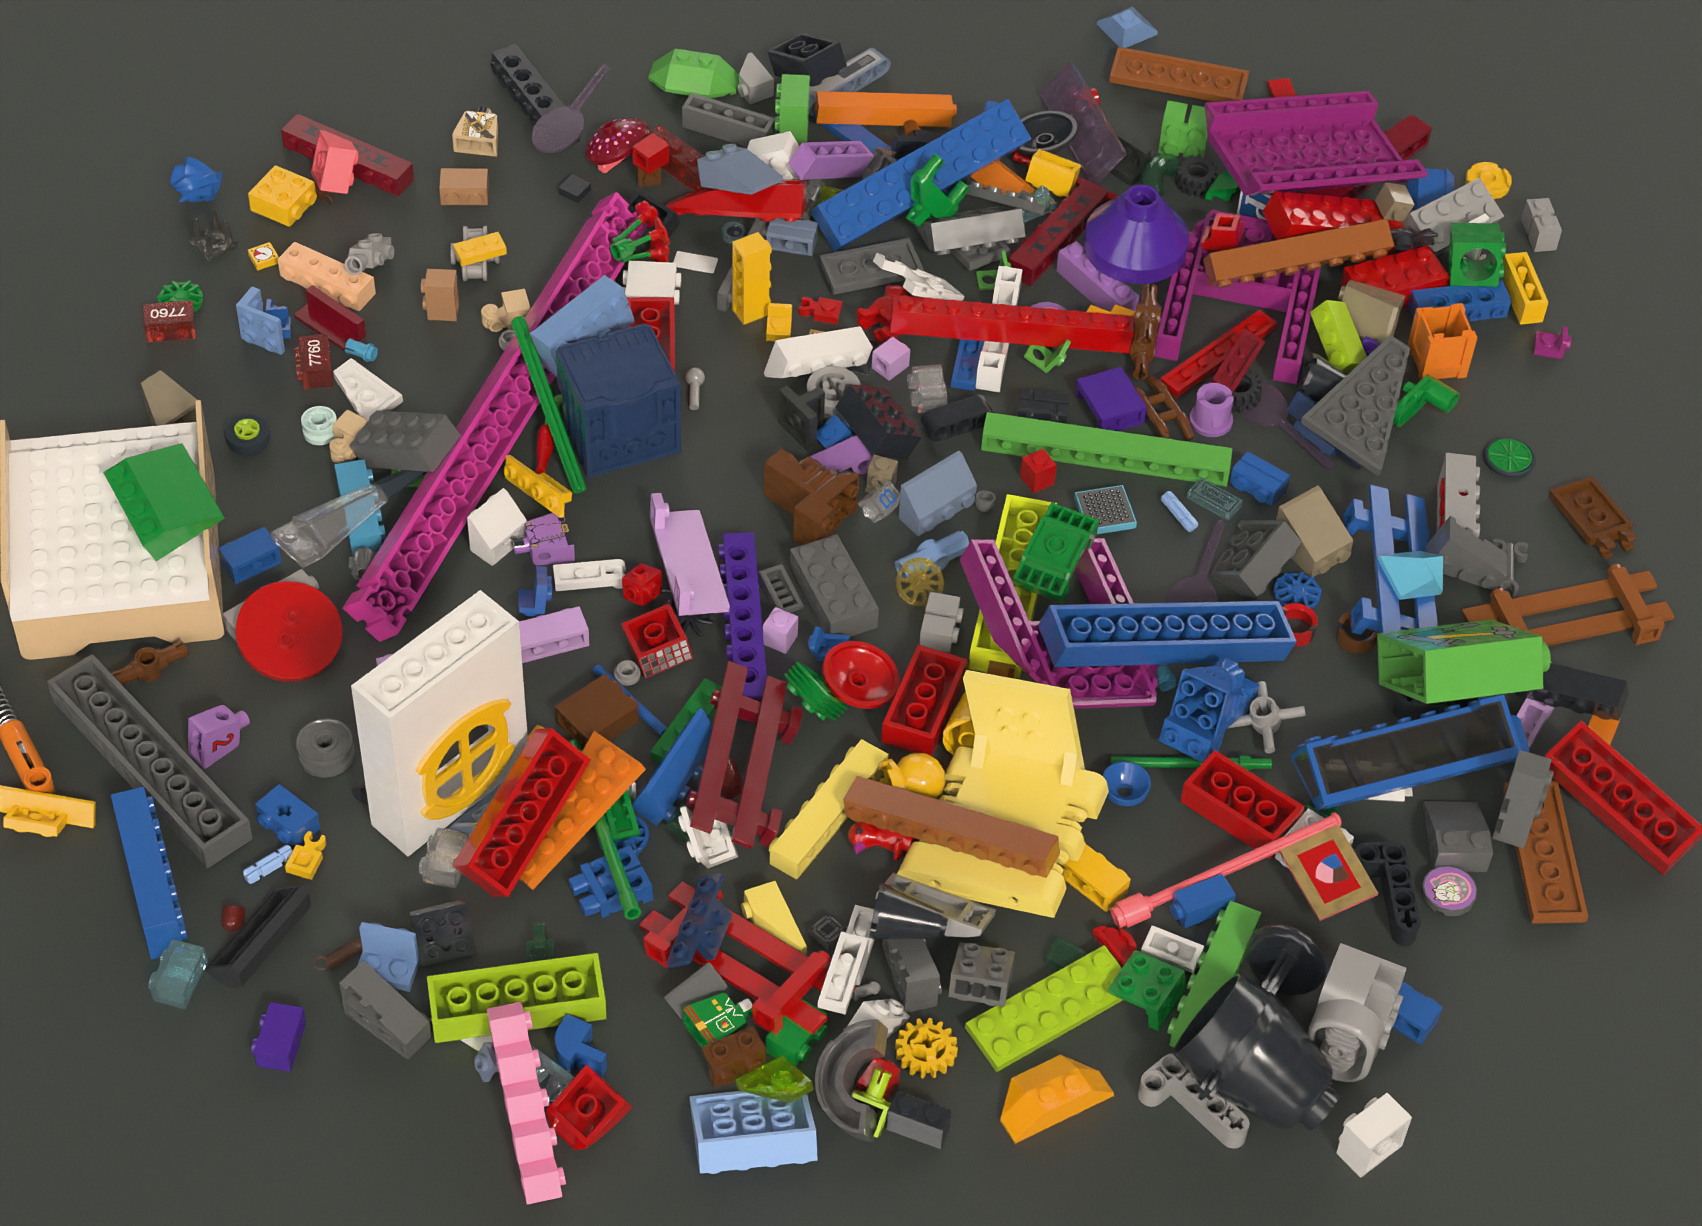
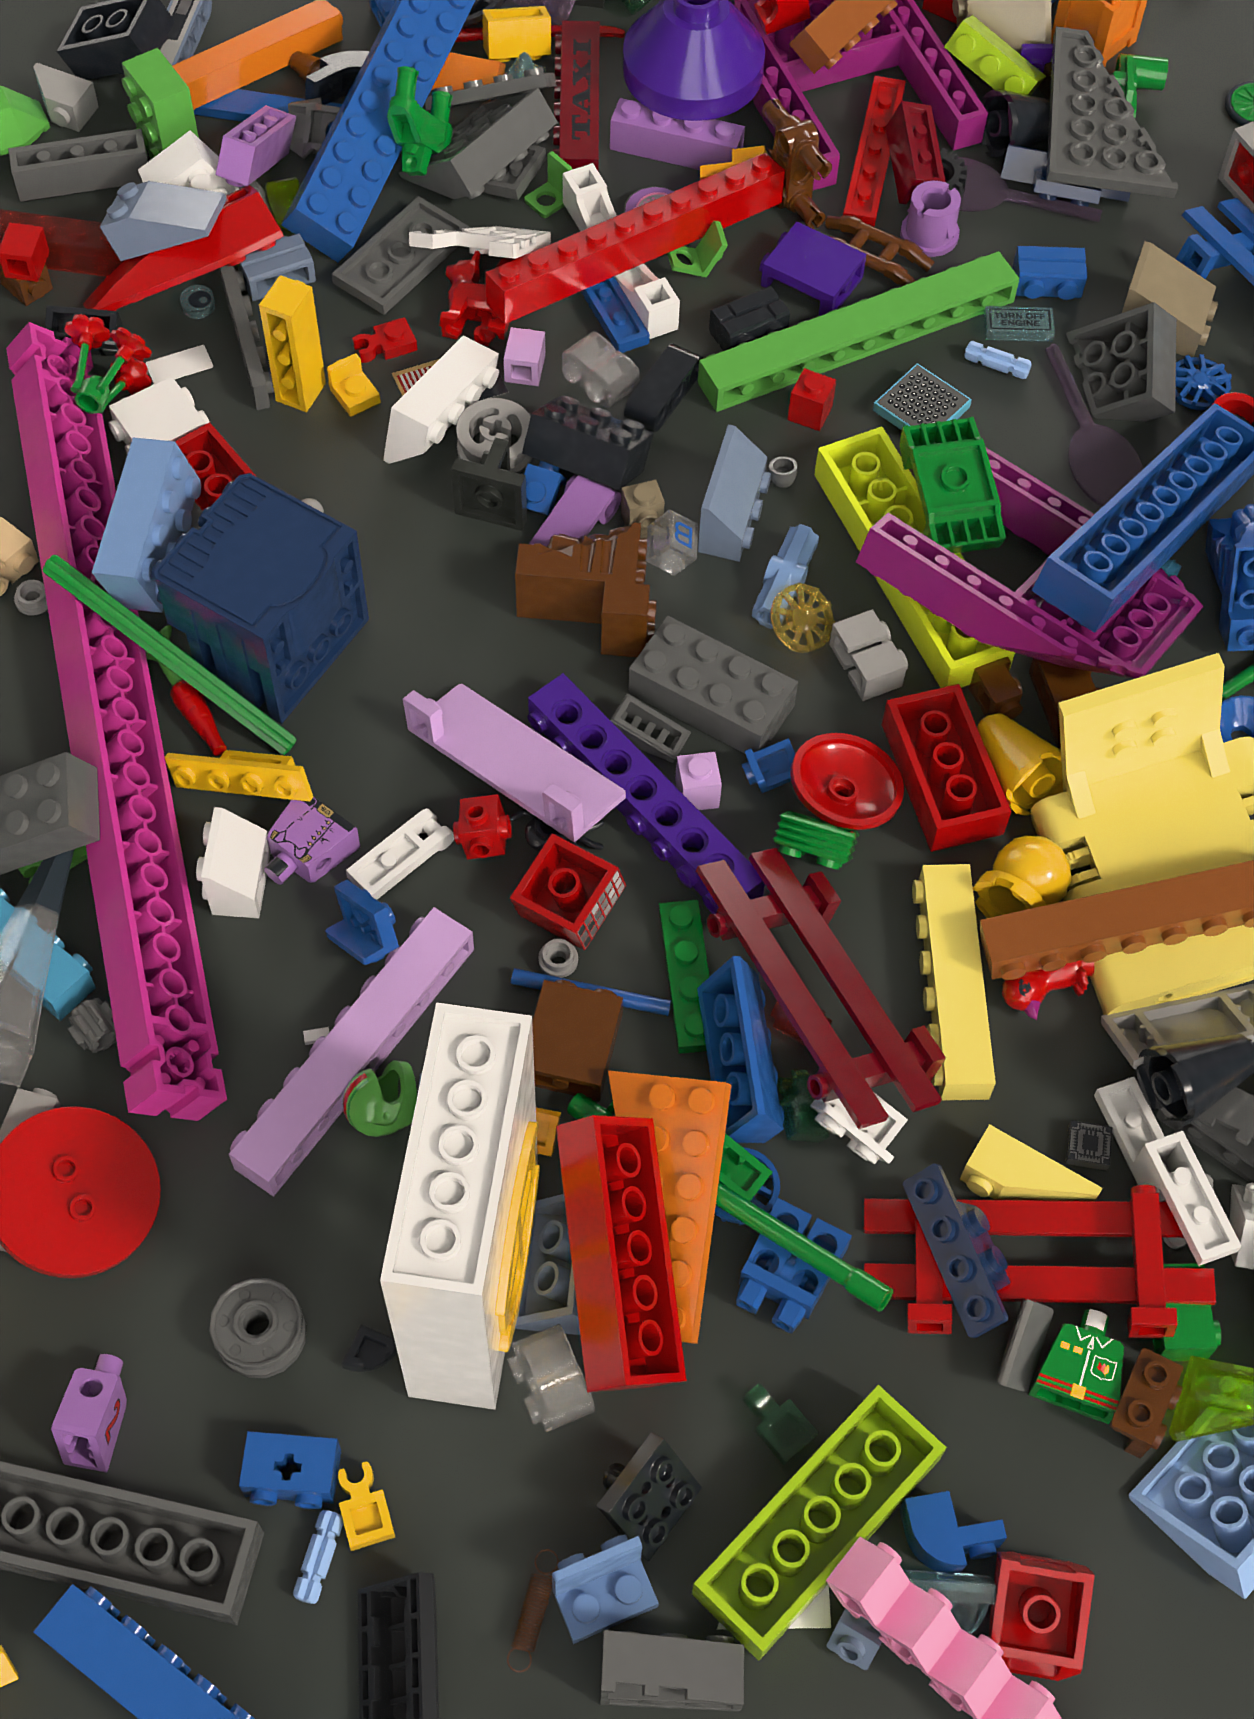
camera: 35 degrees left, 10 degrees up
(232, 918) = (335, 1675): clear red piece -> none

